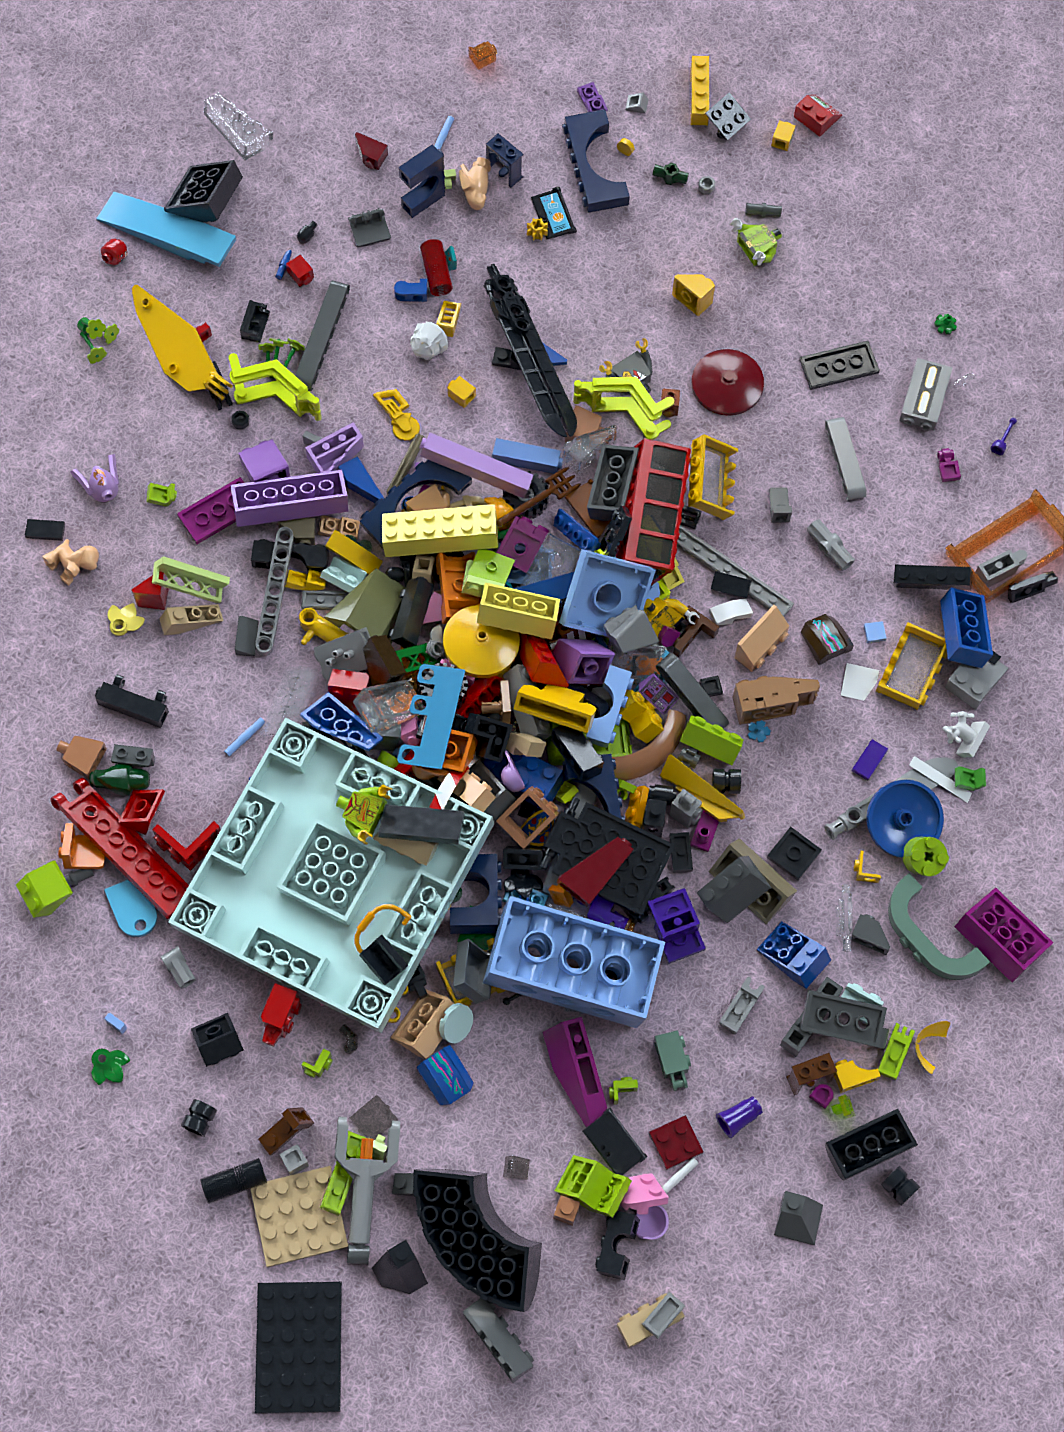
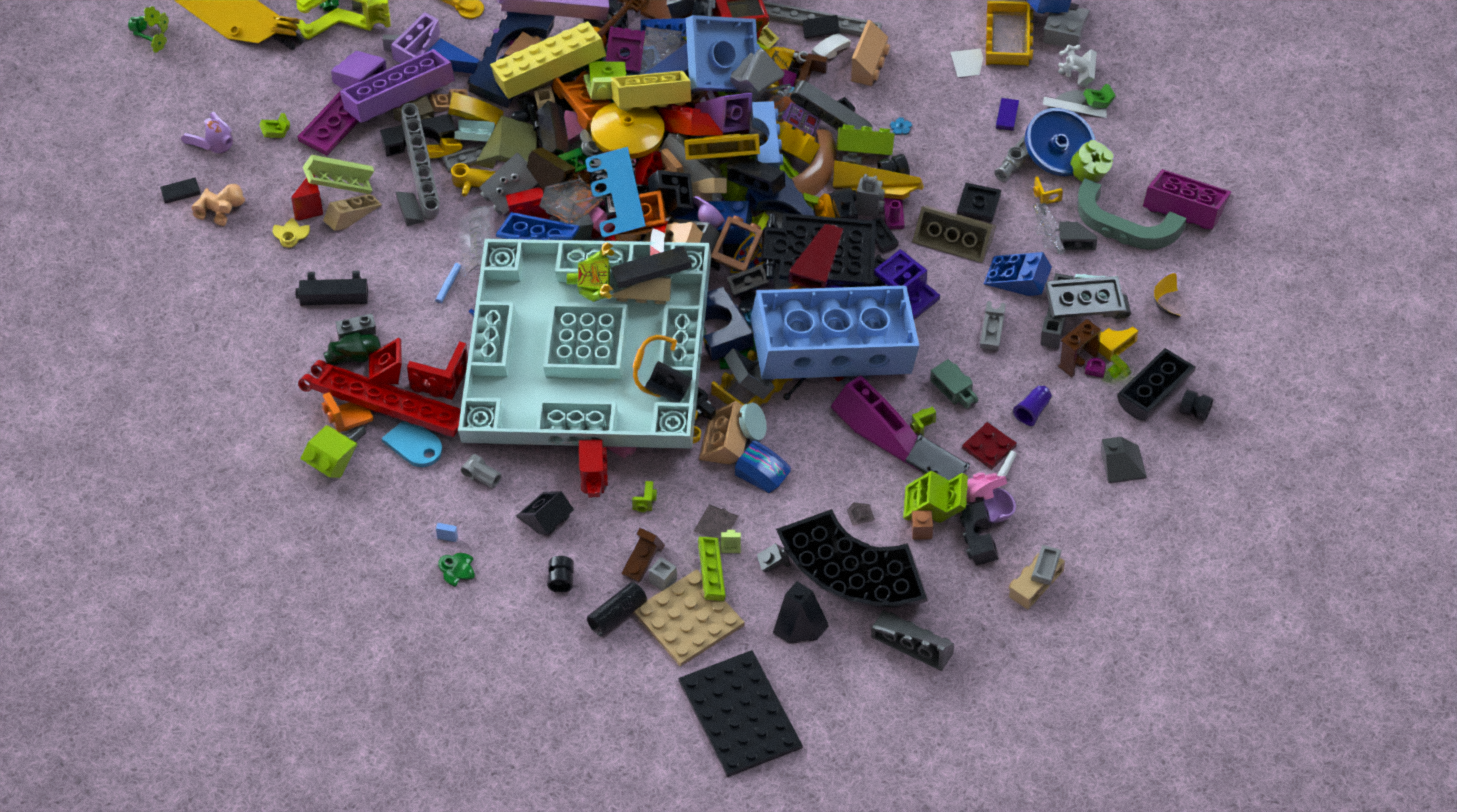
camera: 20 degrees left, 15 degrees down
(82, 754) = (307, 344): nougat torso -> none
(240, 419) = (317, 49): black tile -> none
(351, 1039) = (662, 469): clear smoke arm -> none
(364, 1173) = (732, 557): light grey piece -> none
(407, 462) = (485, 30): dark tan axle -> none
(734, 889) = (942, 239): dark grey slope -> none
(772, 697) = (901, 92): medium nougat piece -> none
(826, 638) = (923, 39): dark brown slope -> none
(875, 632) = (962, 21): light blue tile -> none
(895, 1052) = (1141, 313): lime hinge -> none

